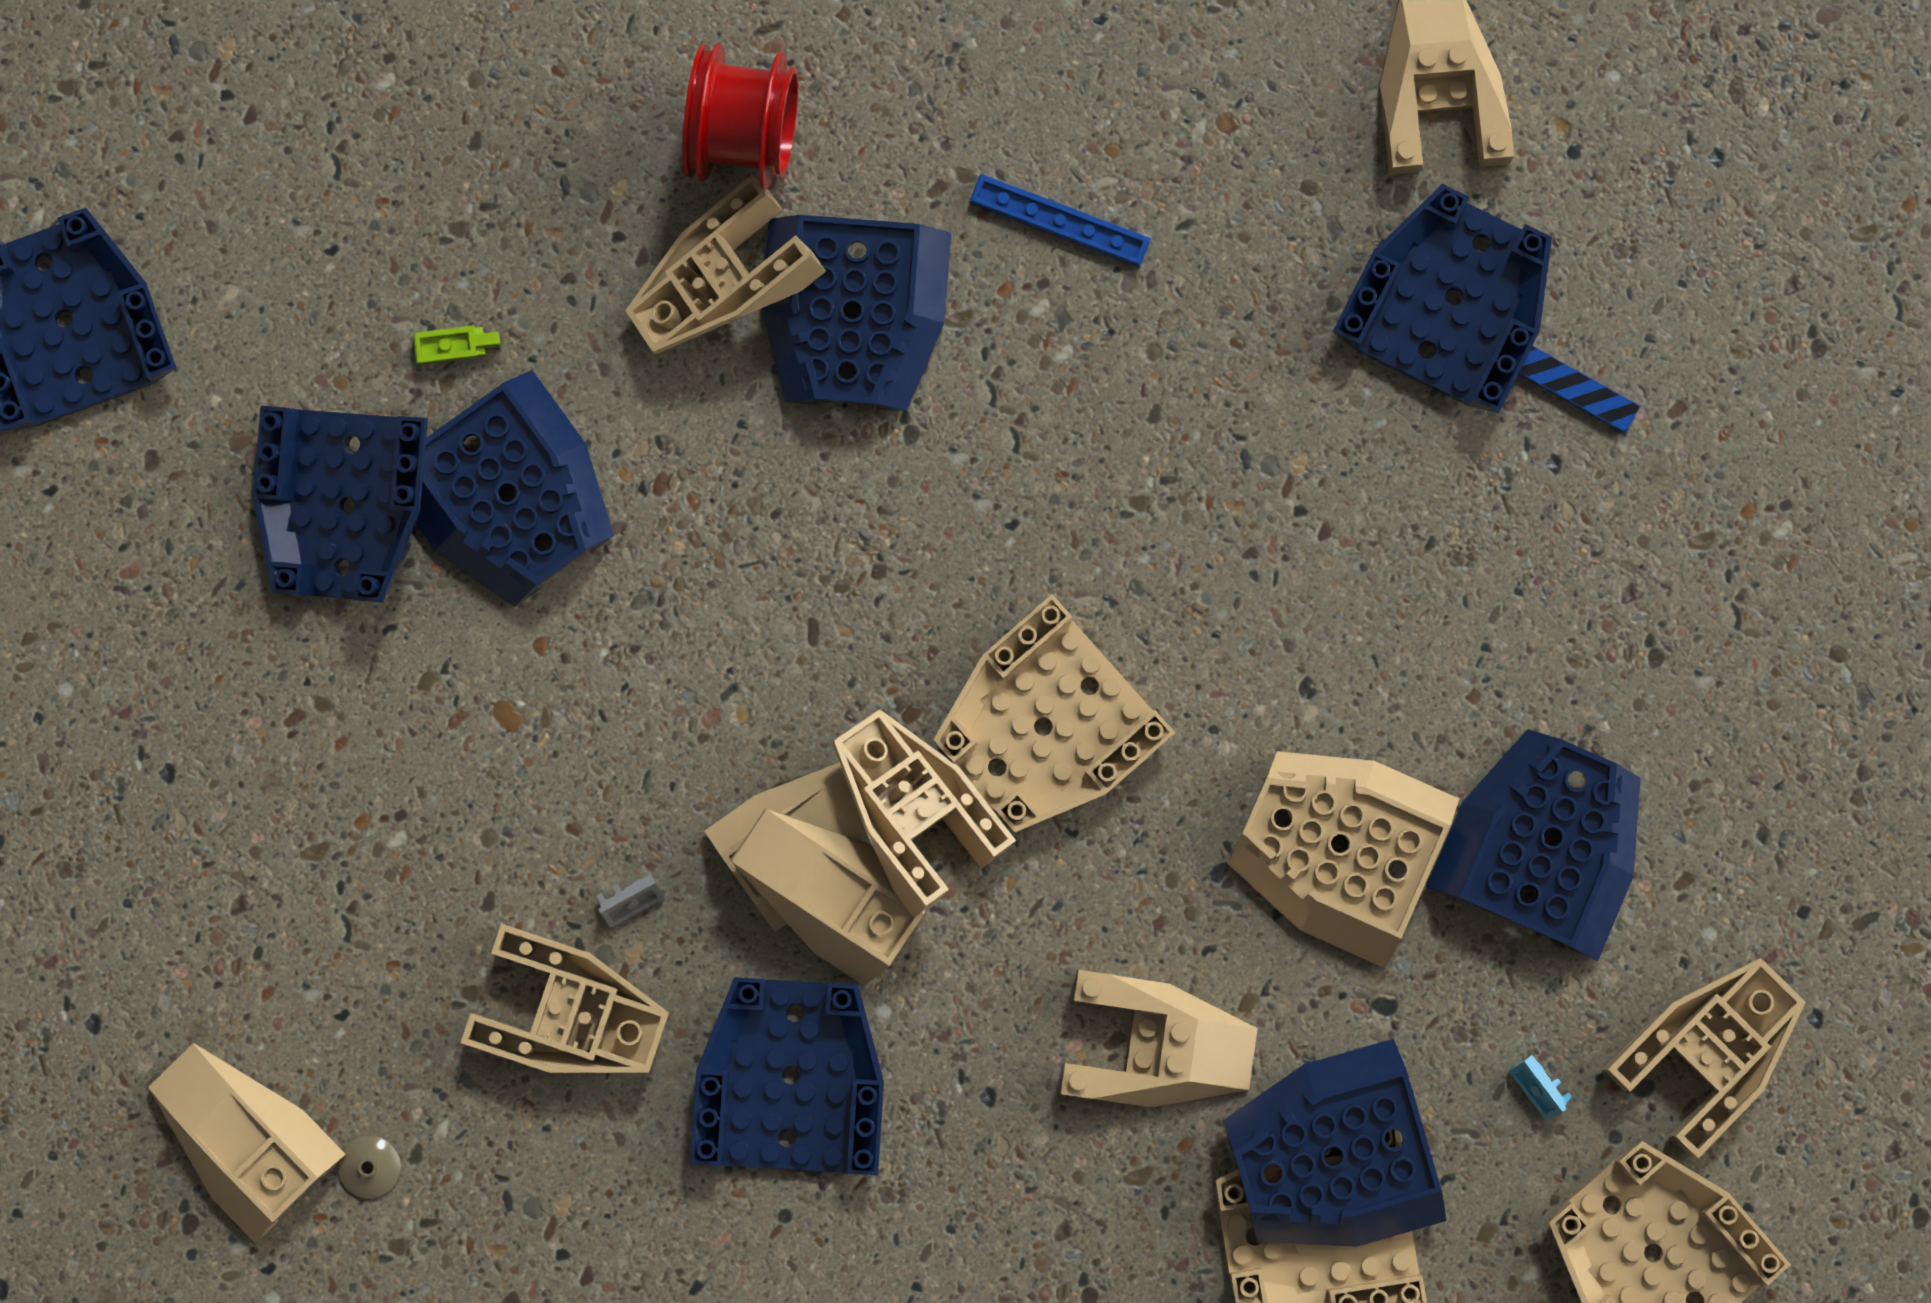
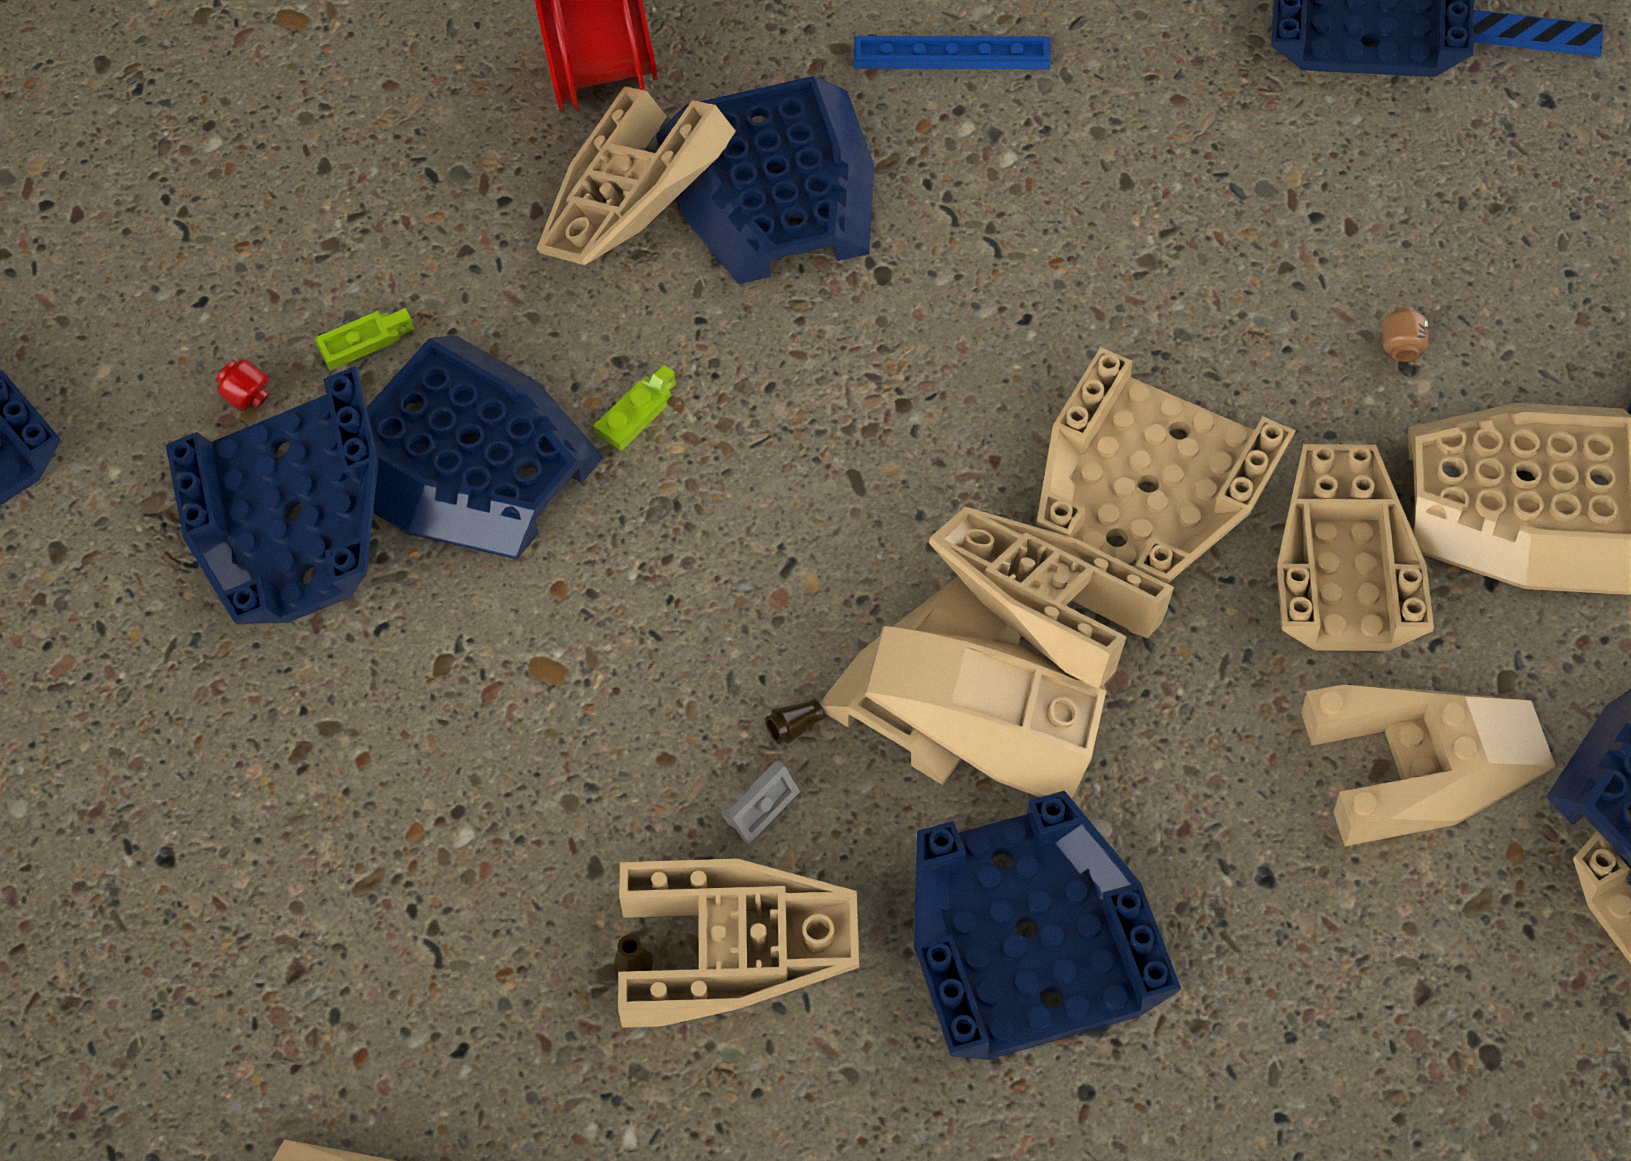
camera: 15 degrees left, 25 degrees down
(341, 359) = (243, 384): none -> red head
(497, 998) = (632, 956): none -> dark brown cone
(657, 498) = (636, 409): none -> lime hinge
(680, 837) = (793, 720): none -> dark brown cone
(1170, 854) = (1350, 557): none -> tan wedge
(1314, 663) = (1405, 334): none -> medium nougat head

